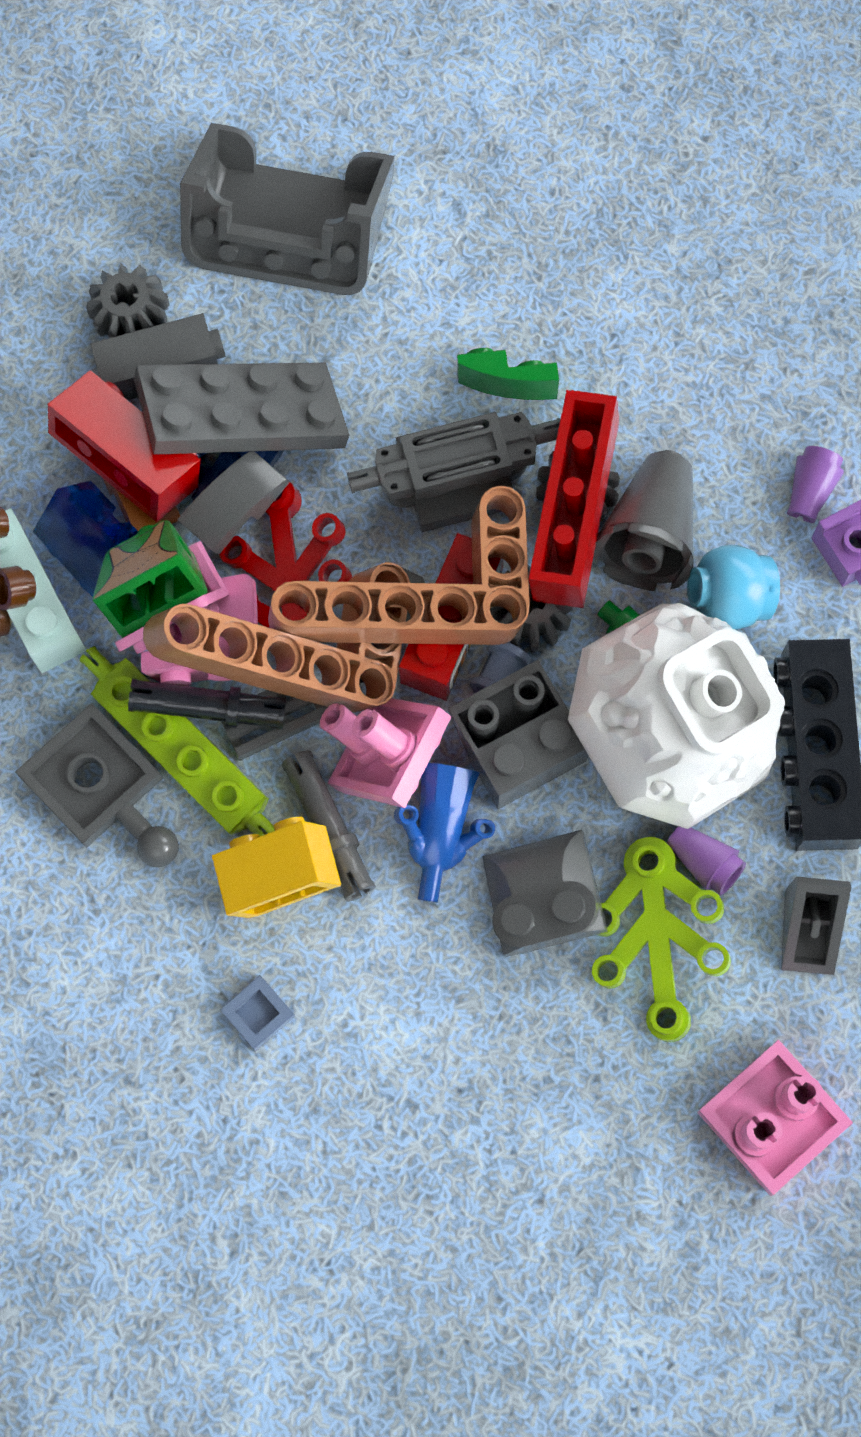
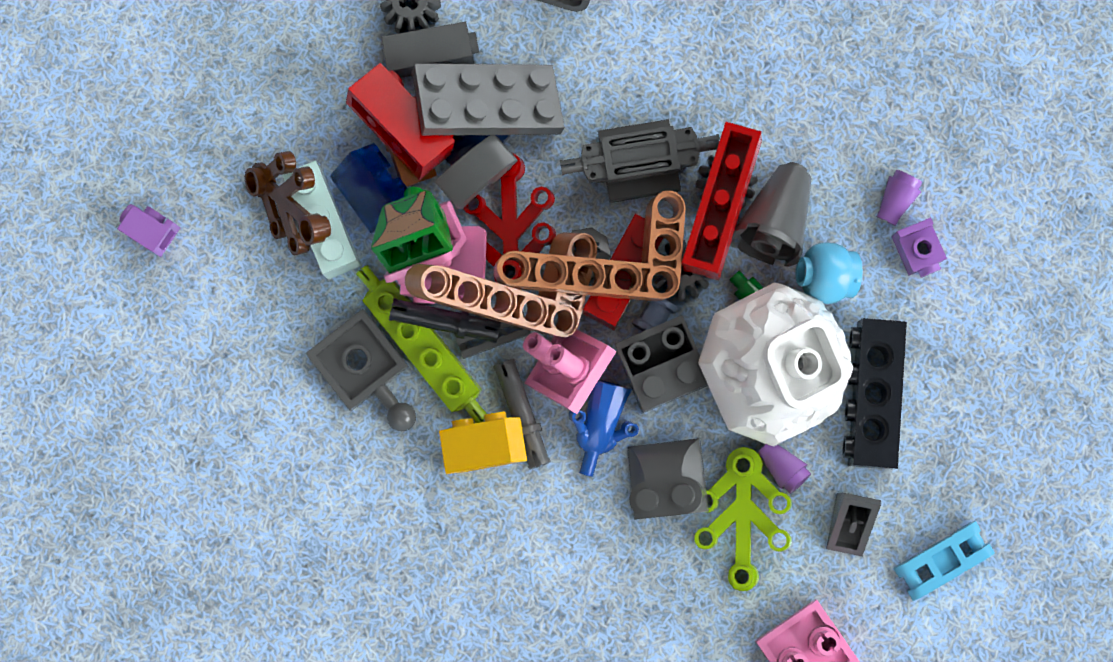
camera: 10 degrees right, 10 degrees up
(257, 1013) = (460, 540): sand blue tile -> none
(489, 373) = (673, 87): green slope -> none

